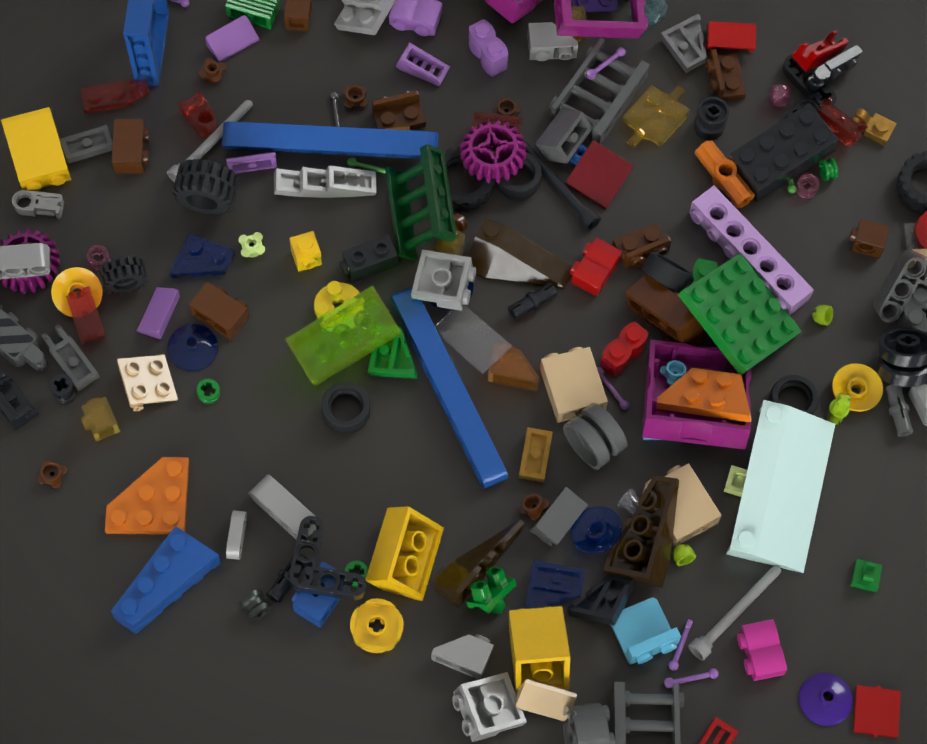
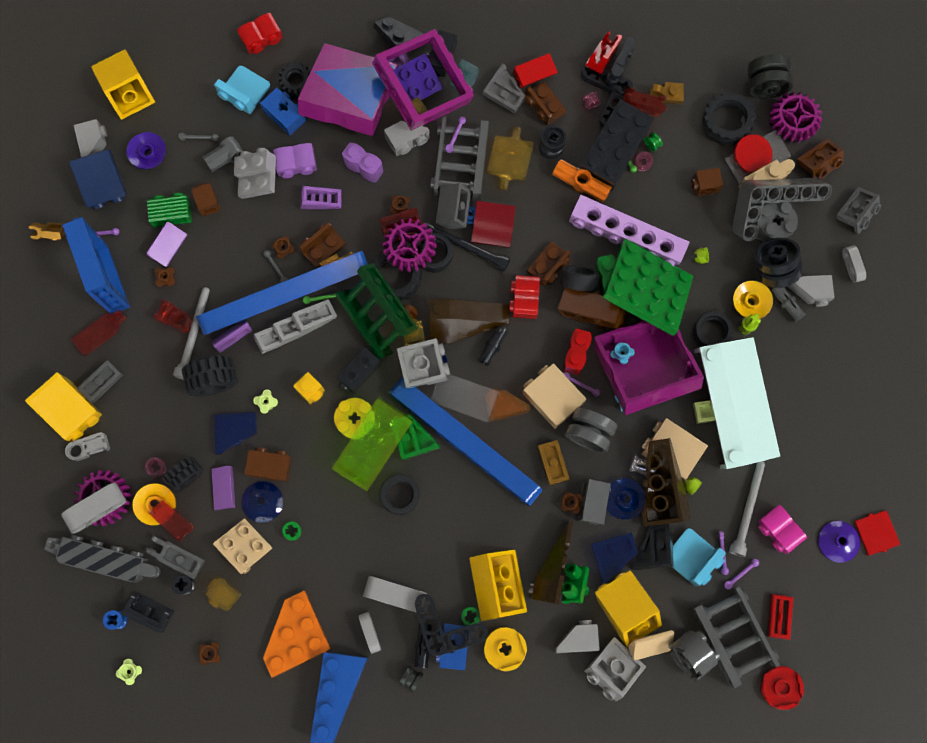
camera: 25 degrees left, 10 degrees up
(129, 146) = (133, 368): reddish brown brick -> none
(707, 394) = (658, 361): orange wing -> none
(866, 575) = (823, 436): green tile -> none

